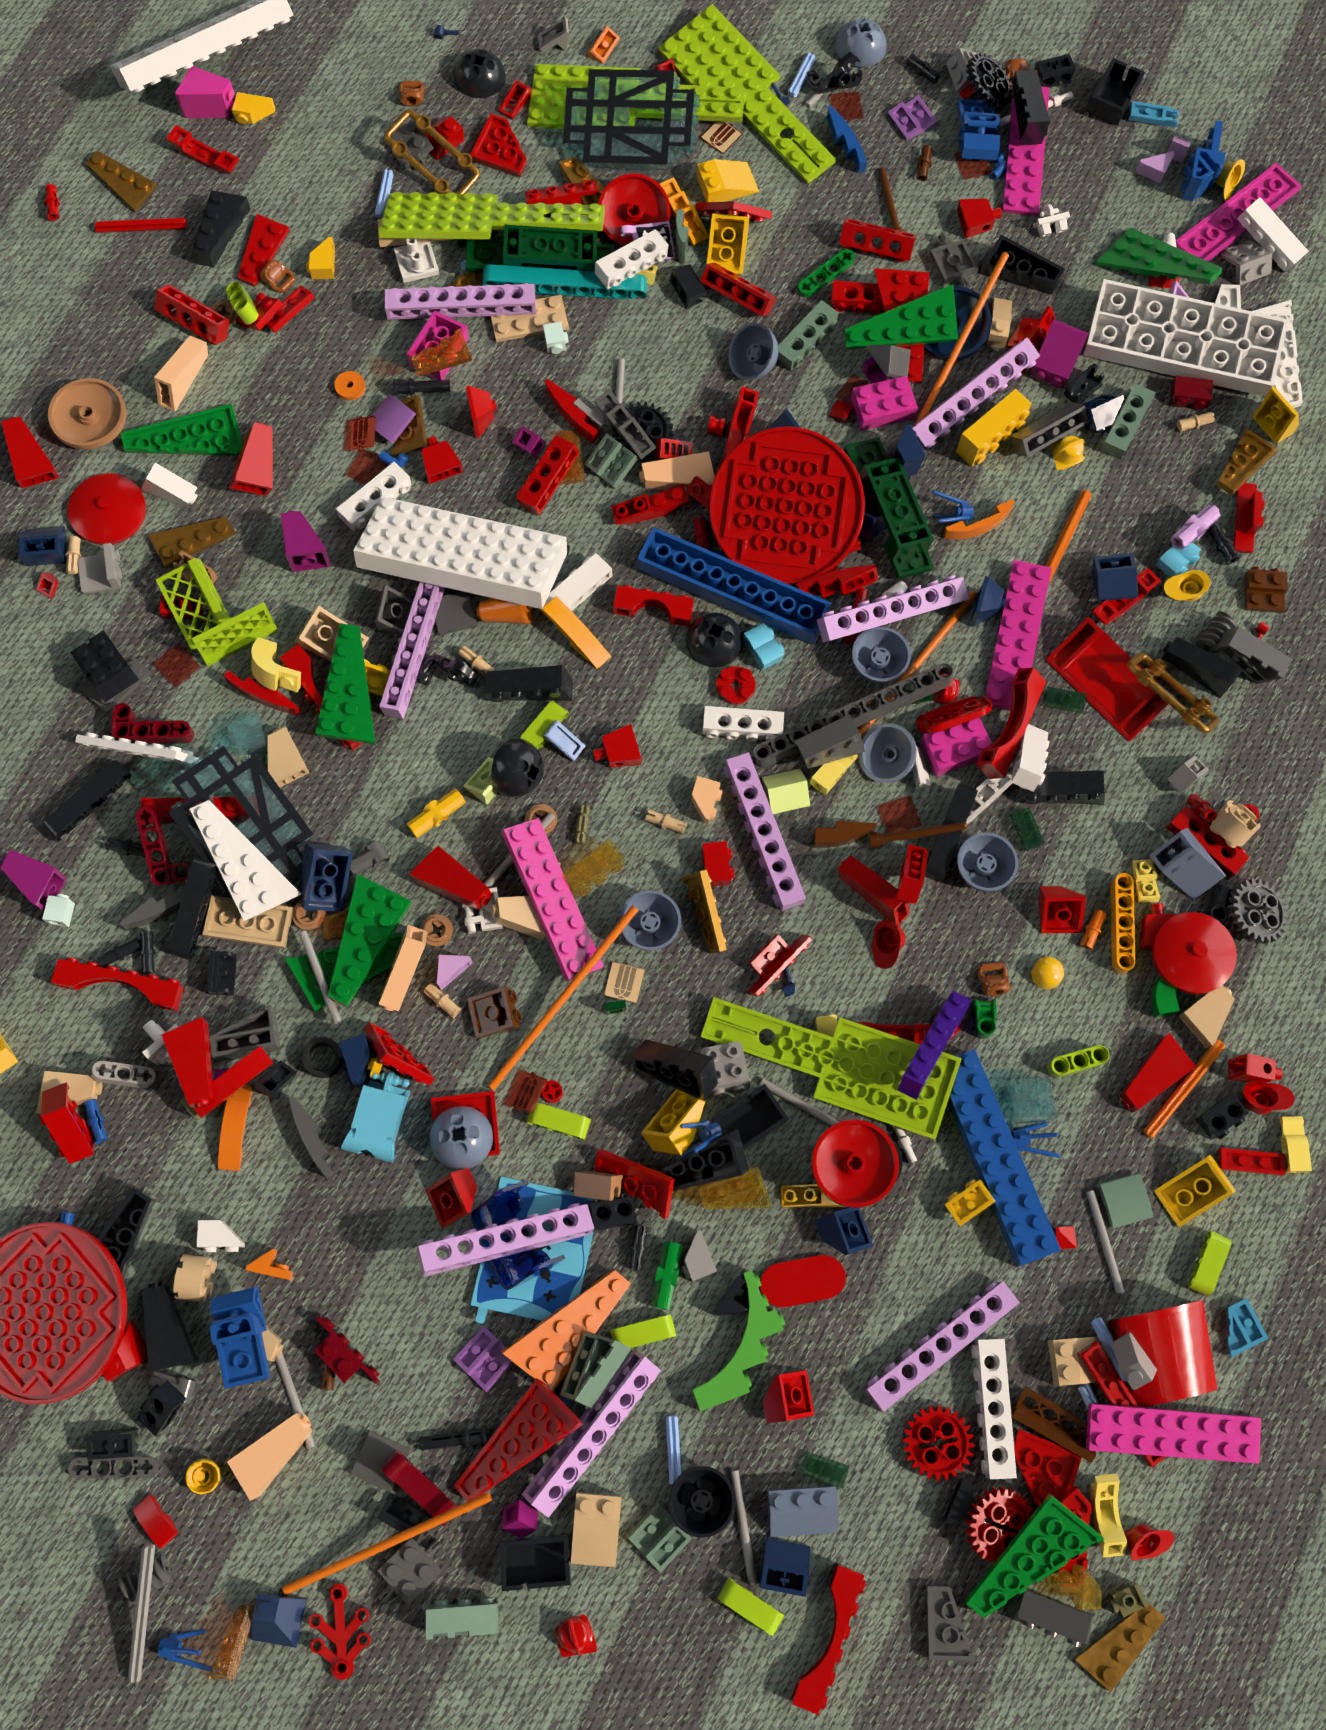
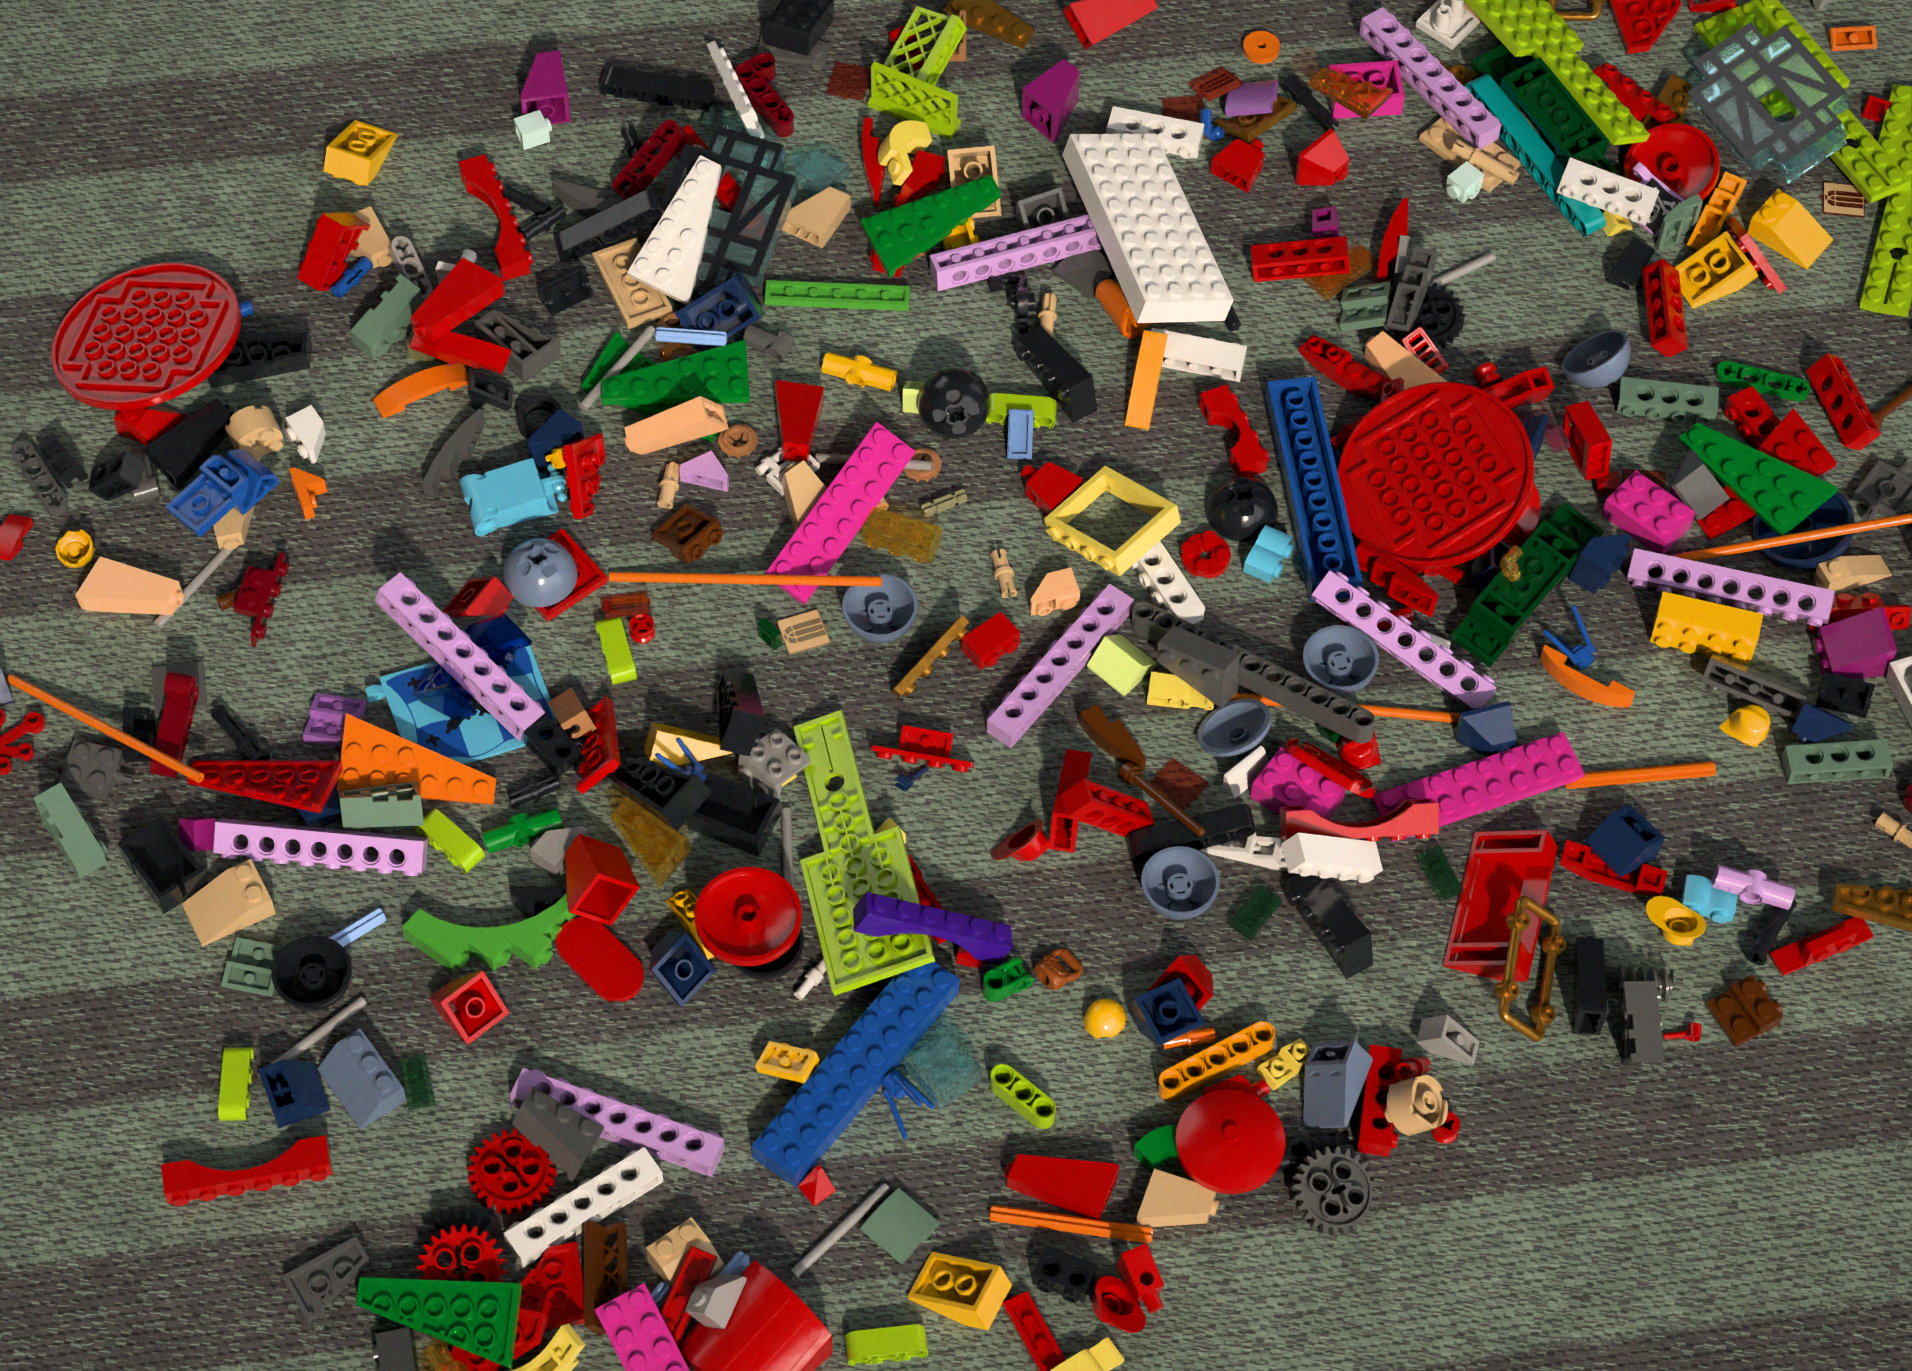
camera: 60 degrees right, 15 degrees down
(159, 1117) = (389, 320): none -> sand green wedge
(329, 909) = (691, 336): none -> light blue axle
(360, 788) = (837, 295): none -> bright green plate
(544, 317) = (1485, 162): none -> tan pin
(575, 1636) = (113, 946): red piece -> none
(668, 698) = (1164, 513): none -> light yellow window
(747, 1246) = (598, 880): none -> red slope
(799, 416) = (1557, 439): none -> clear pink slope
(811, 400) = (1588, 440): none -> red window
(887, 507) = (1509, 565): none -> clear yellow arm
(935, 1393) = (557, 1130): none -> dark grey wedge
(1074, 933) = (1165, 1013): none -> dark blue slope

